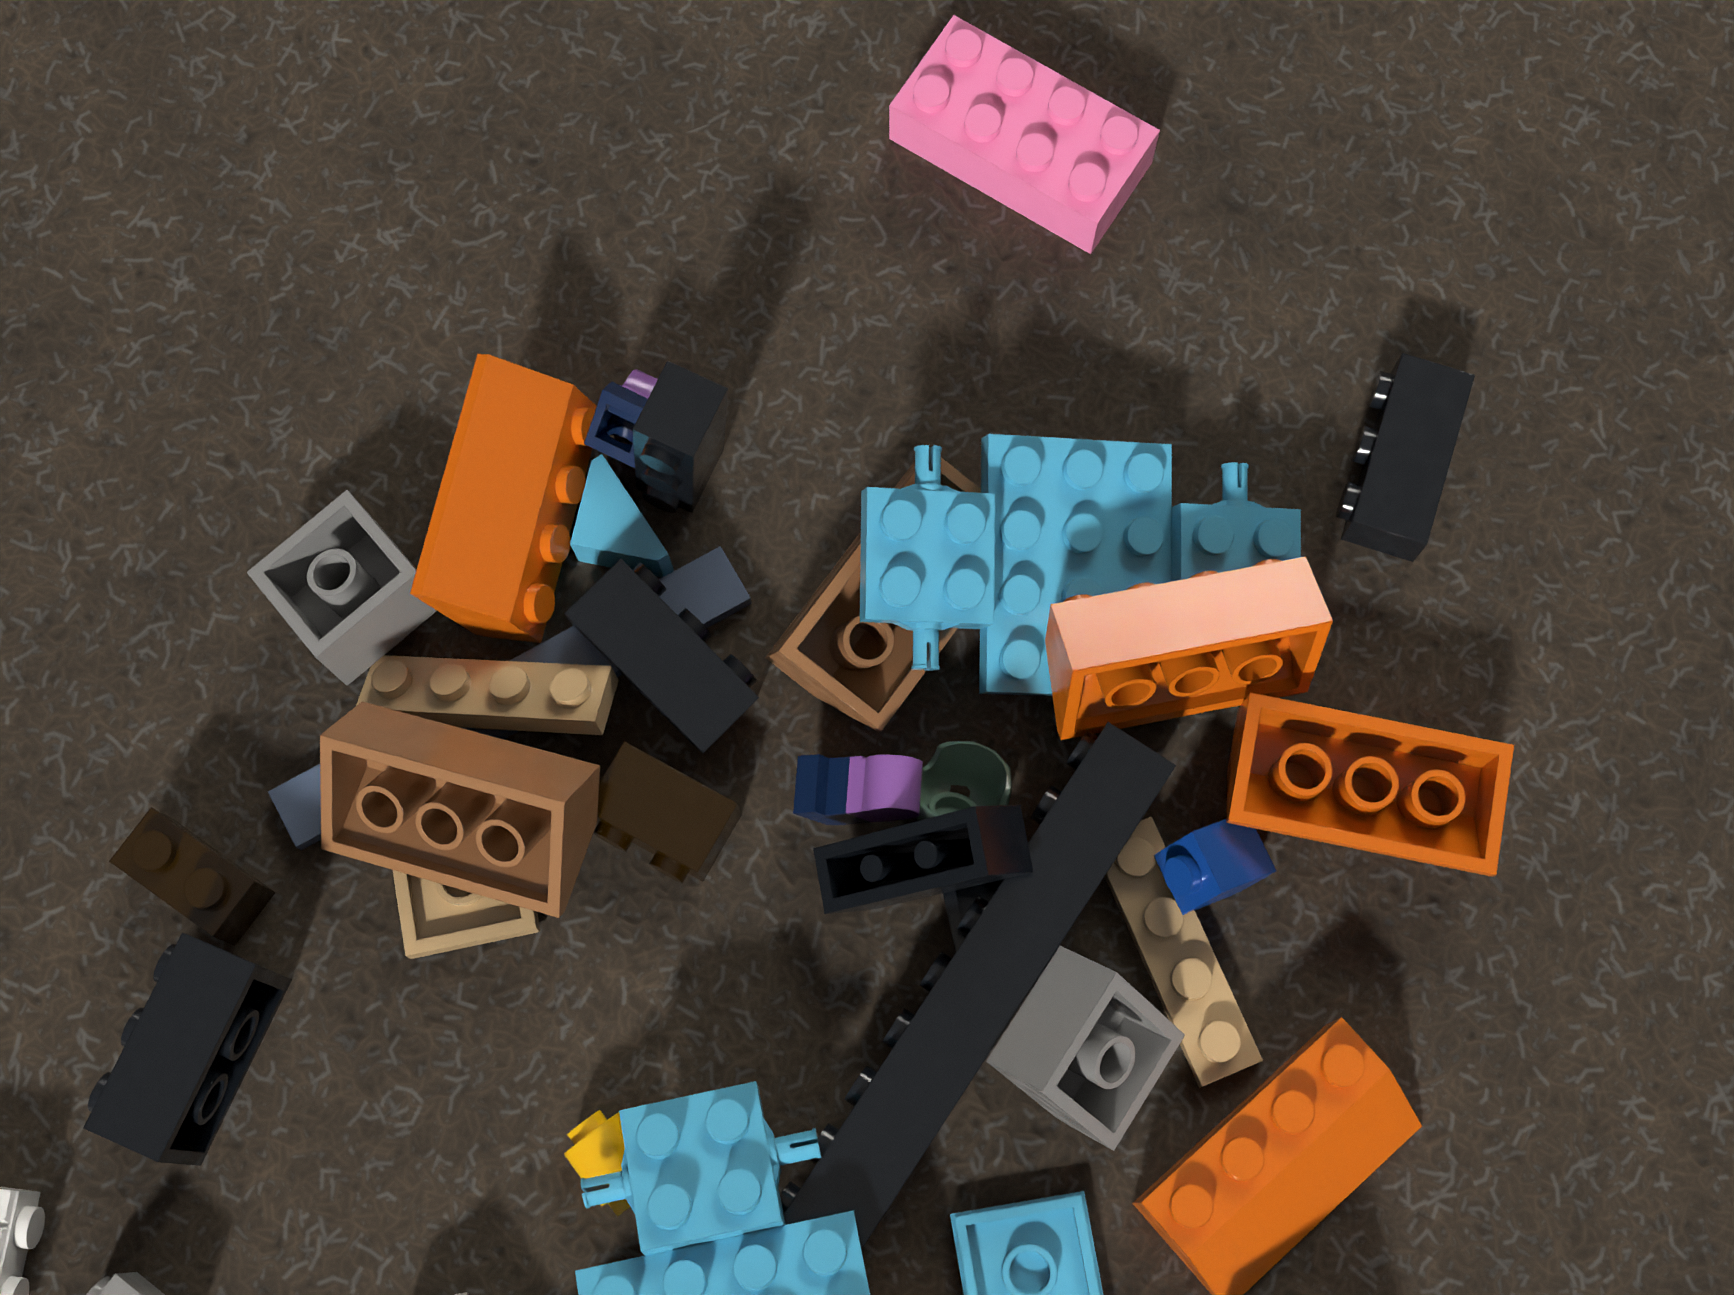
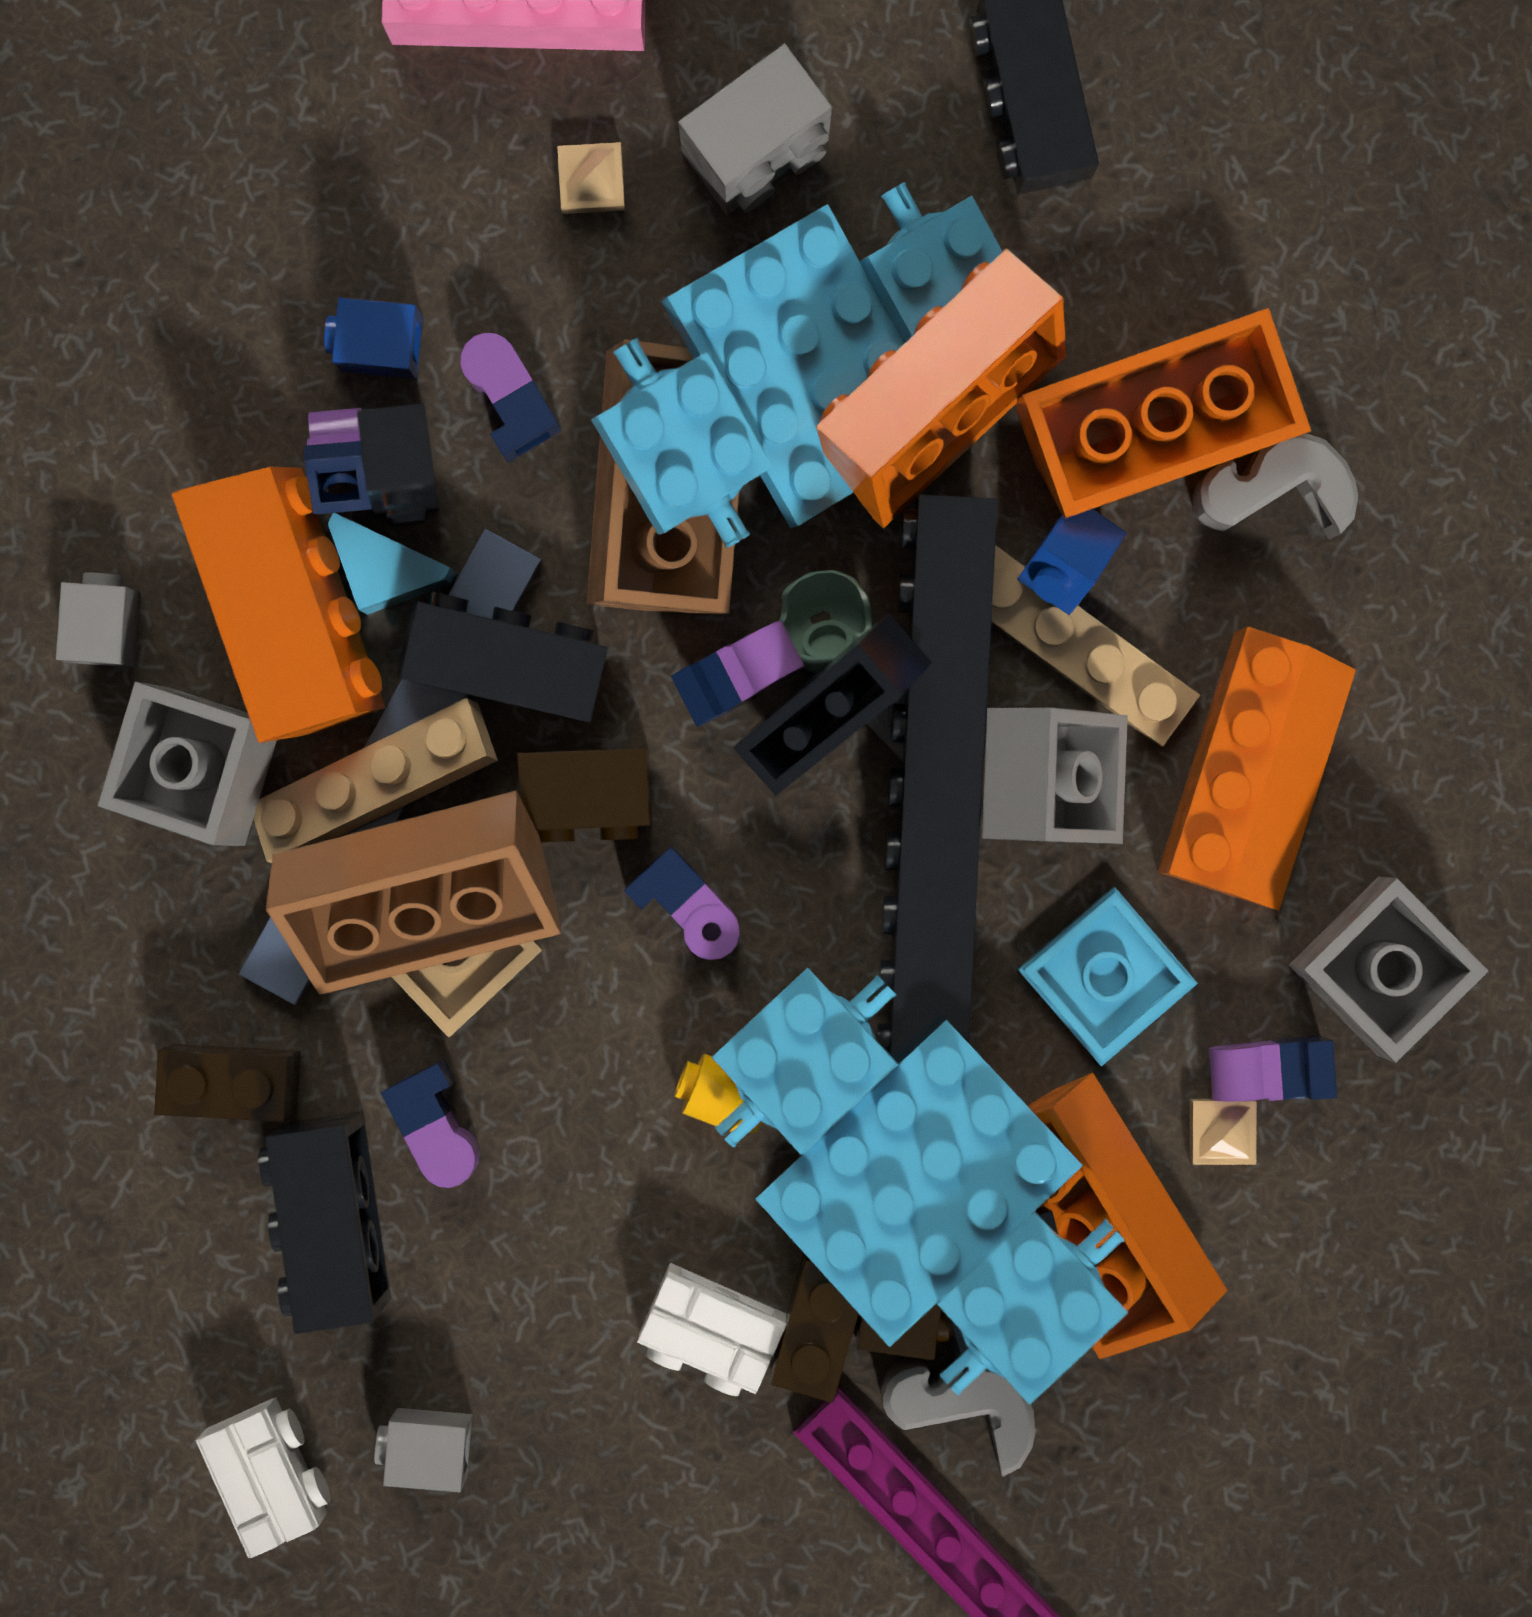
camera: 35 degrees left, 15 degrees up
(336, 1027) = (438, 1144): none -> leg
(354, 434) = (98, 621): none -> light grey brick
(696, 990) = (707, 921): none -> leg
(729, 344) = (375, 338): none -> blue brick
(812, 435) = (499, 373): none -> leg
(986, 324) = (591, 178): none -> tan tile
(1145, 355) = (757, 131): none -> light grey brick
(1443, 899) = (1304, 462): none -> light grey animal

